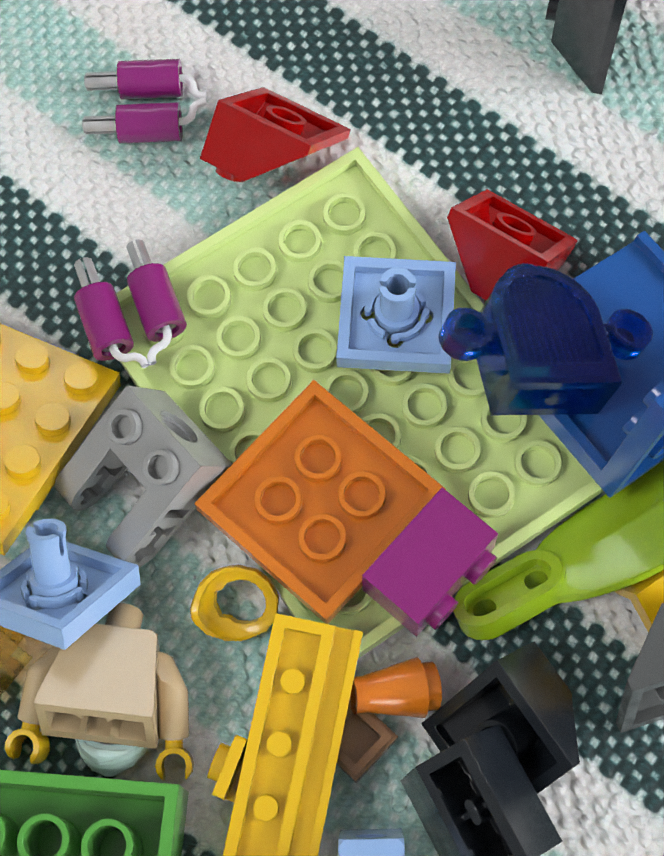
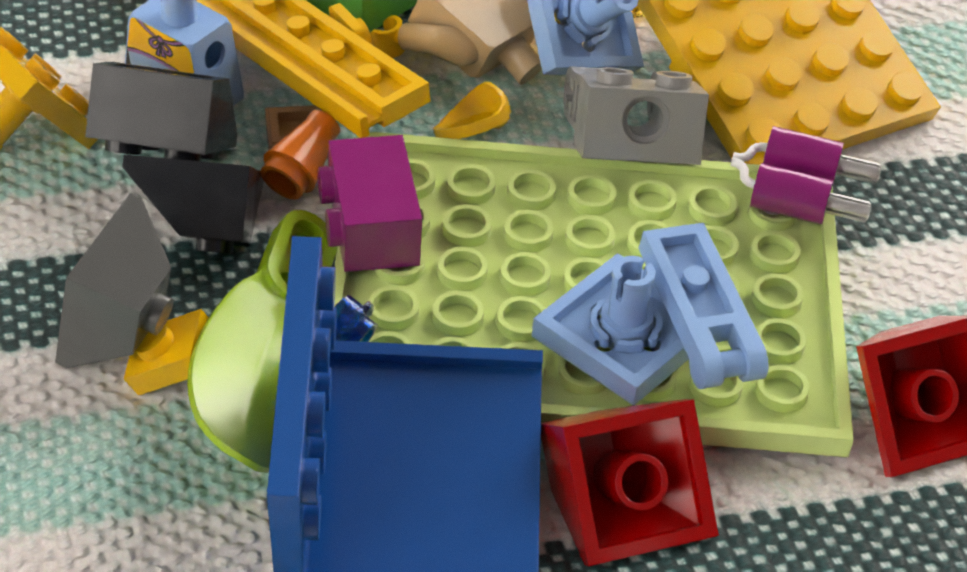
camera: 120 degrees right, 25 degrees down
(317, 499) = (503, 184): orange plate -> none
(357, 257) = (704, 305): none -> light blue plate
(544, 344) = (483, 355): clear blue piece -> none
(560, 484) = (354, 320): none -> clear blue plate

